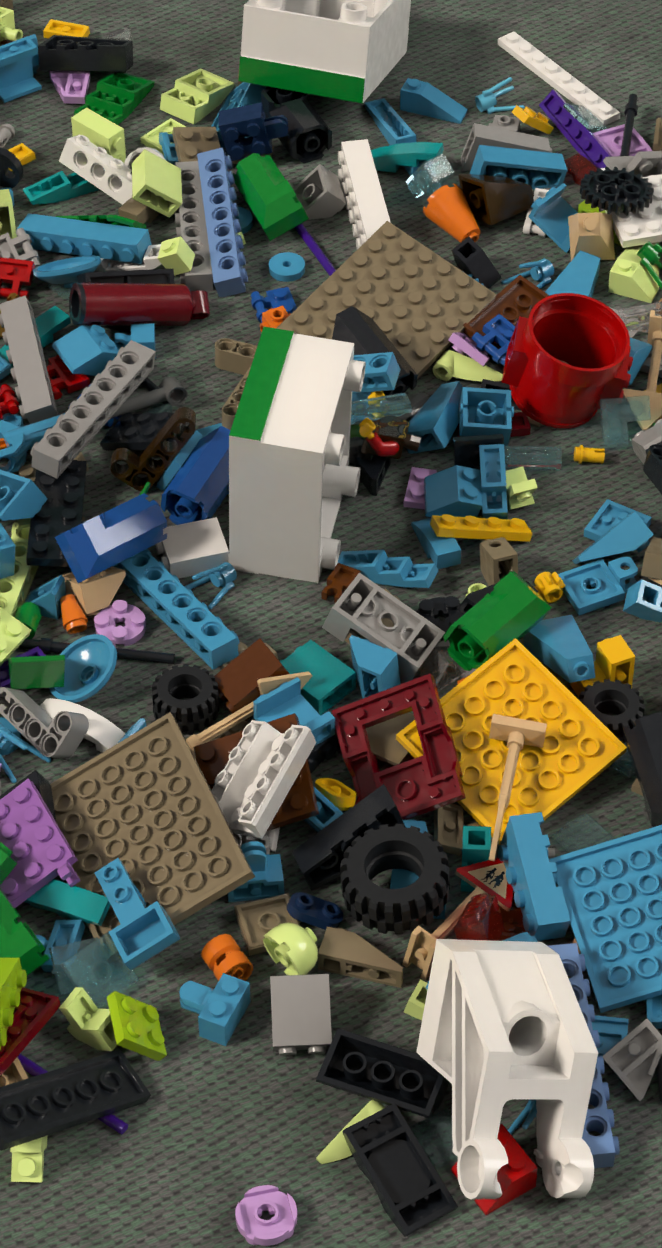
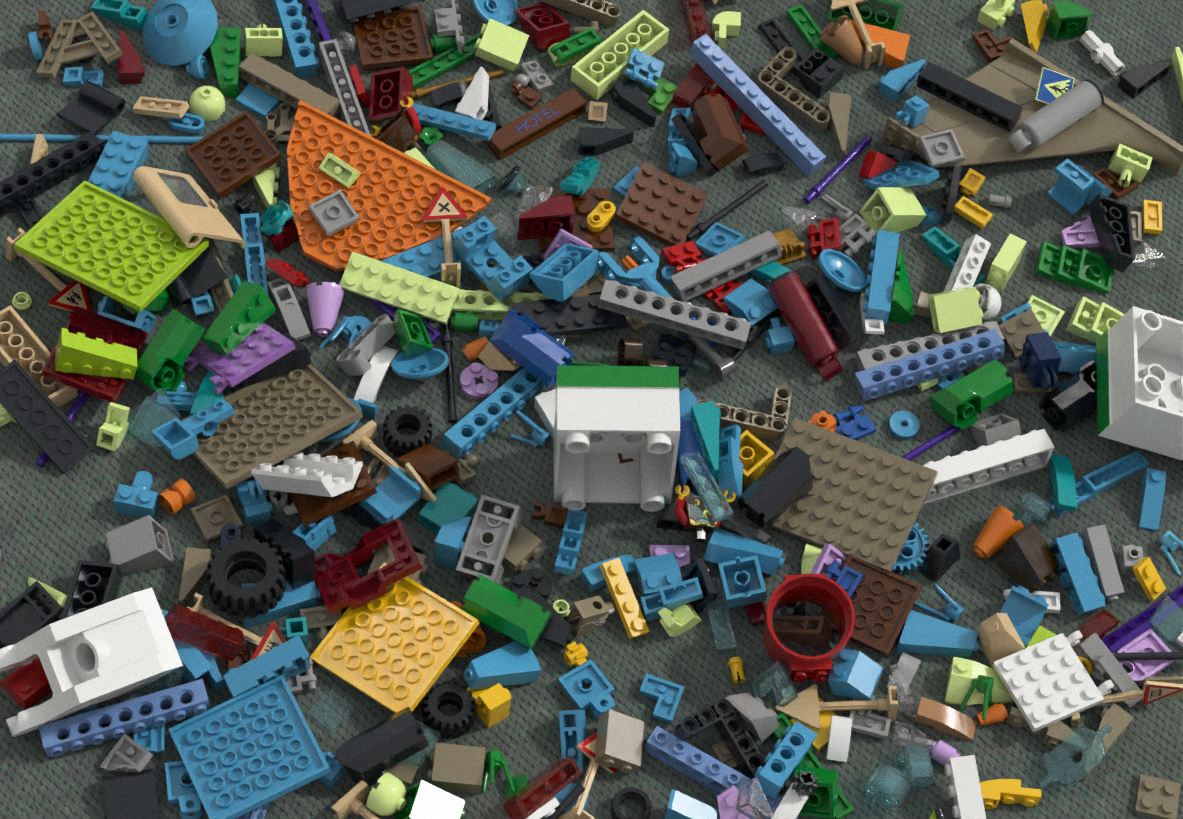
camera: 70 degrees right, 10 degrees up
(136, 1026) = (111, 452): lime plate -> none
(176, 255) = (870, 338): yellowish green brick -> none
(292, 947) = (186, 531): yellowish green cylinder -> none
(336, 792) = (334, 539): yellow plate -> none
(380, 371) = (741, 482): dark azure brick -> none
(516, 733) = (313, 639): tan piece -> none
(616, 191) = (1044, 643): black gear -> none
(621, 539) = (633, 697): dark azure slope -> none

